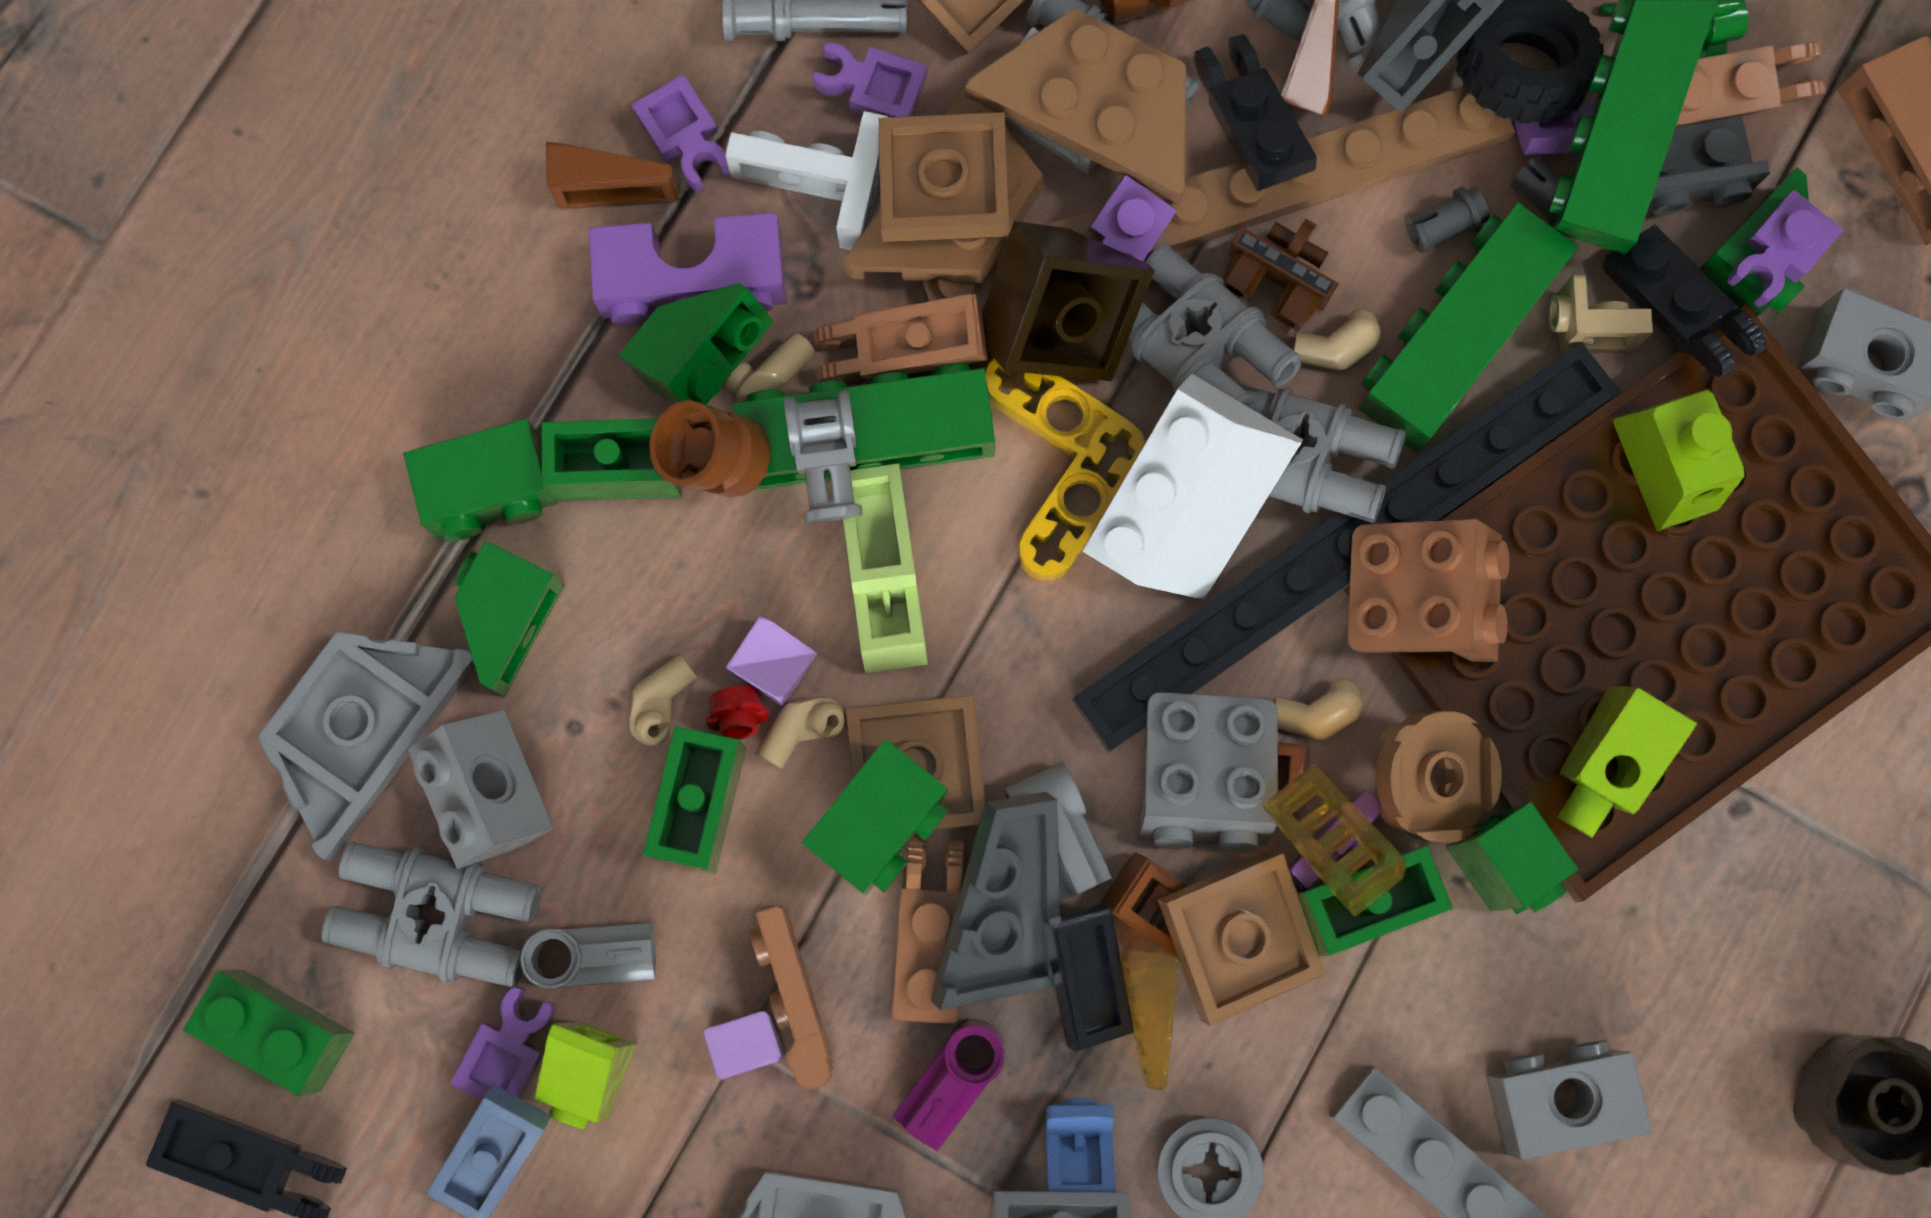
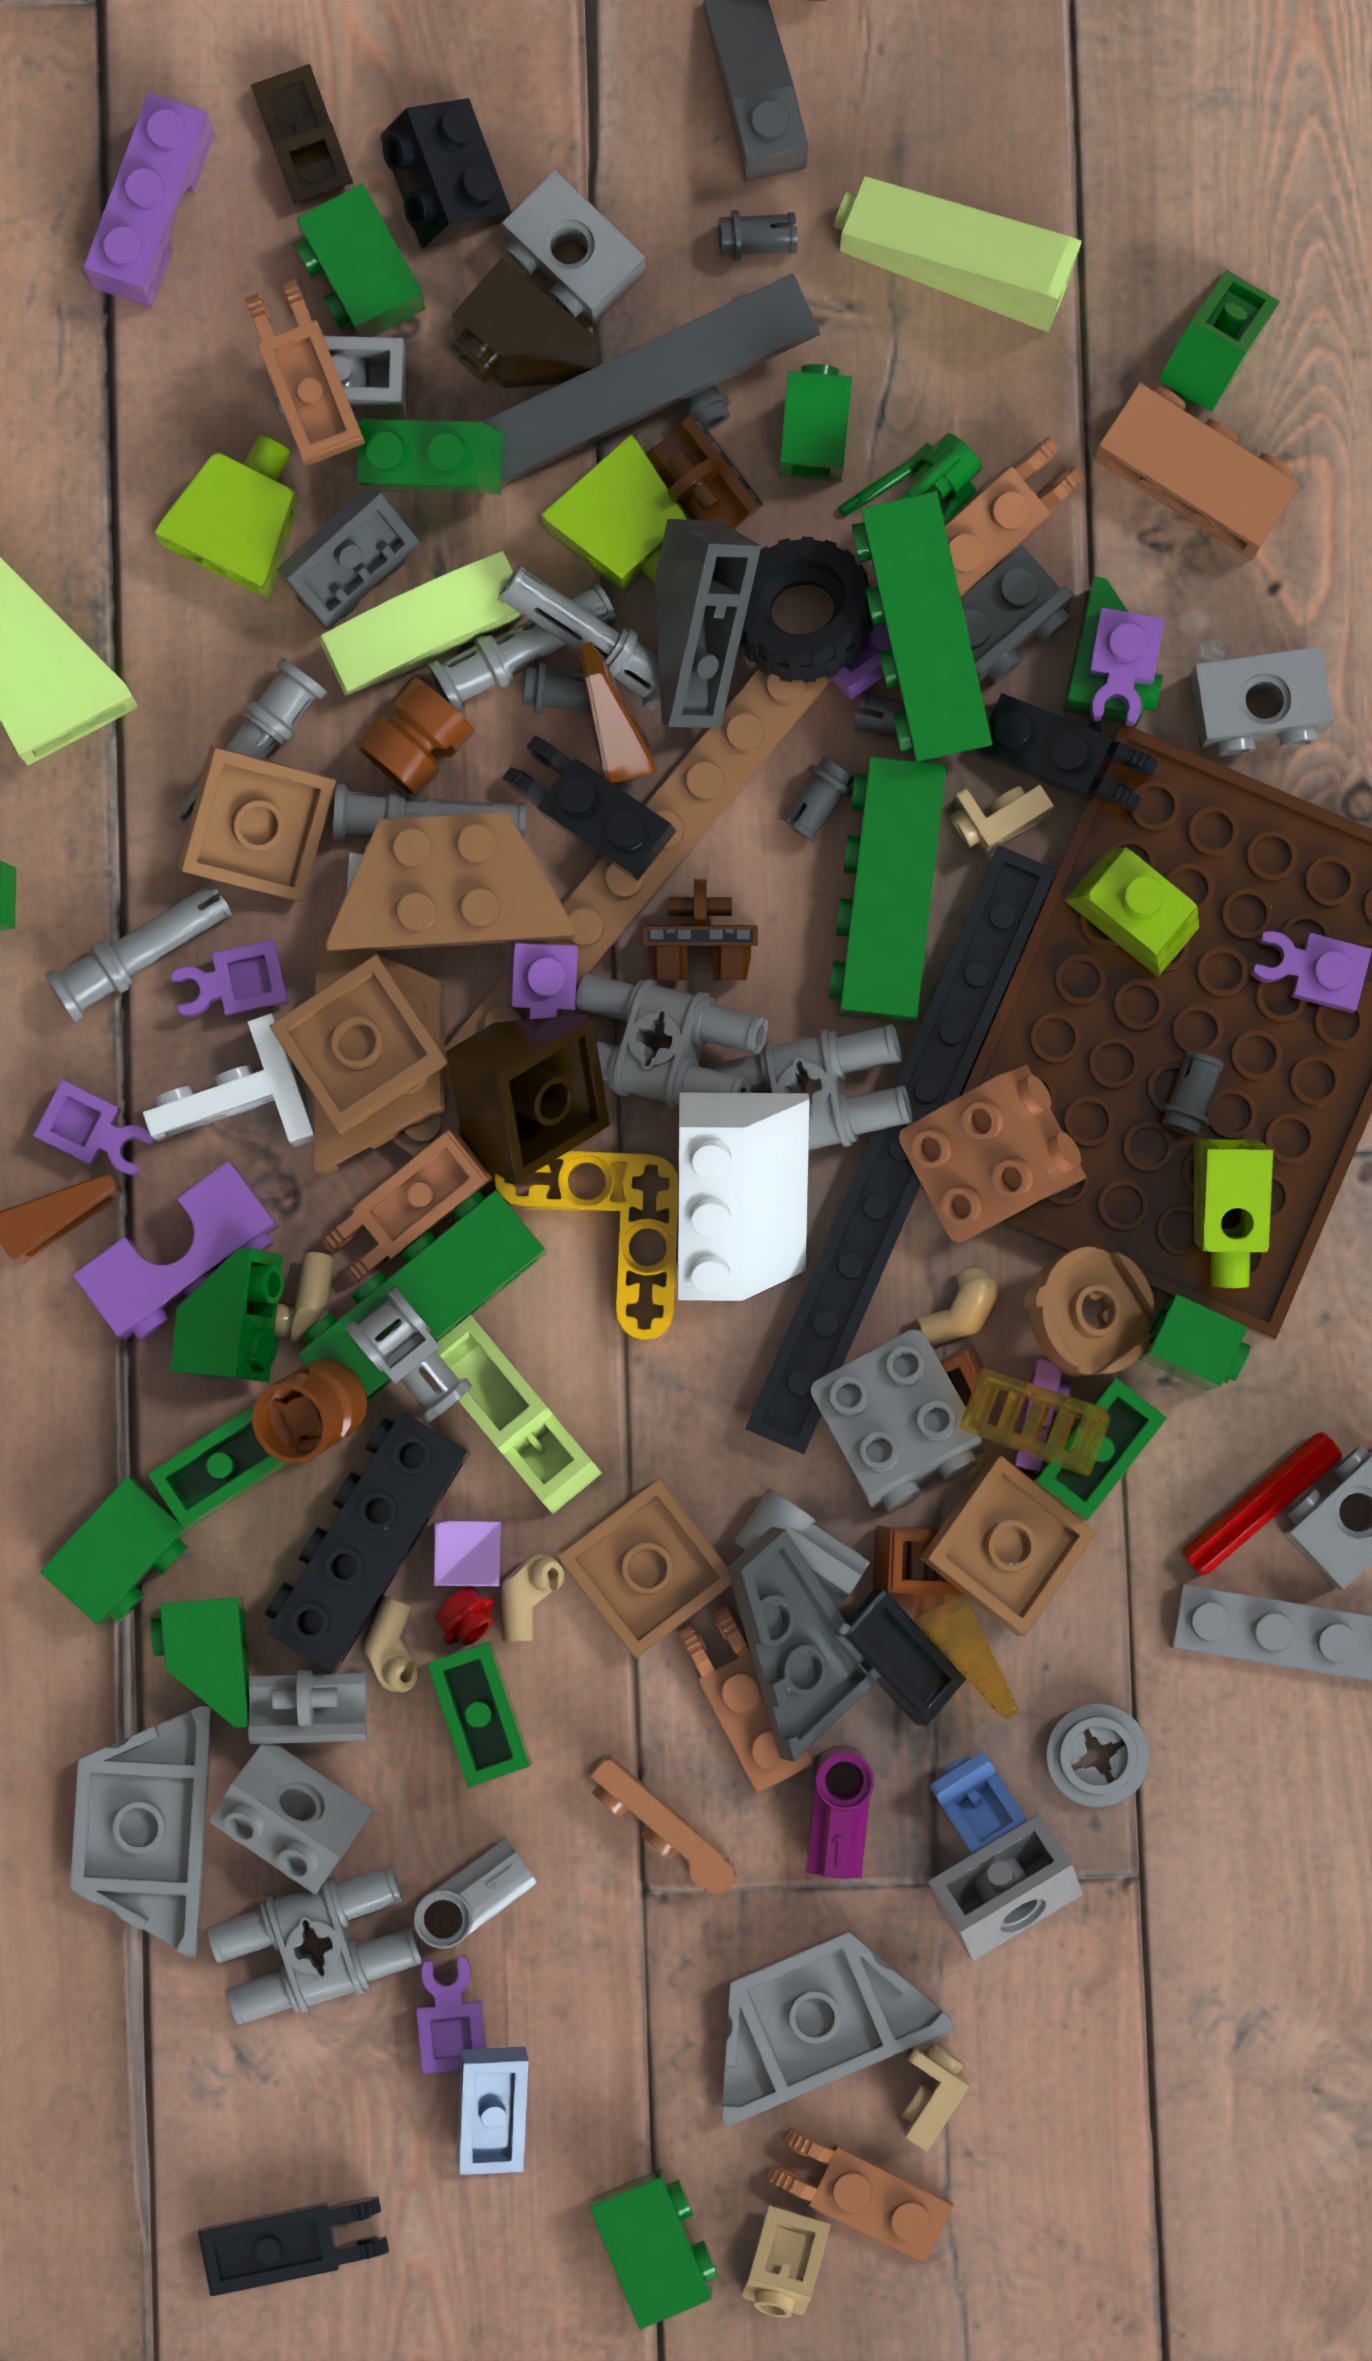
camera: 30 degrees left, 5 degrees up
(268, 1031) = (242, 2125): green brick -> none
(553, 706) = (307, 1708): none -> light grey hips
(582, 1072) = (528, 1996): lime slope -> none
(692, 598) = (367, 1541): none -> black brick
(744, 1044) = (647, 1890): lavender slope -> none
(878, 818) = (644, 1636): green brick -> none
(1343, 346) = (793, 973): tan arm -> none
(1485, 1039) = (1261, 1503): none -> red axle
(1622, 653) = (1192, 1094): none -> dark grey pin
(1808, 609) = (1324, 971): none -> medium lavender plate

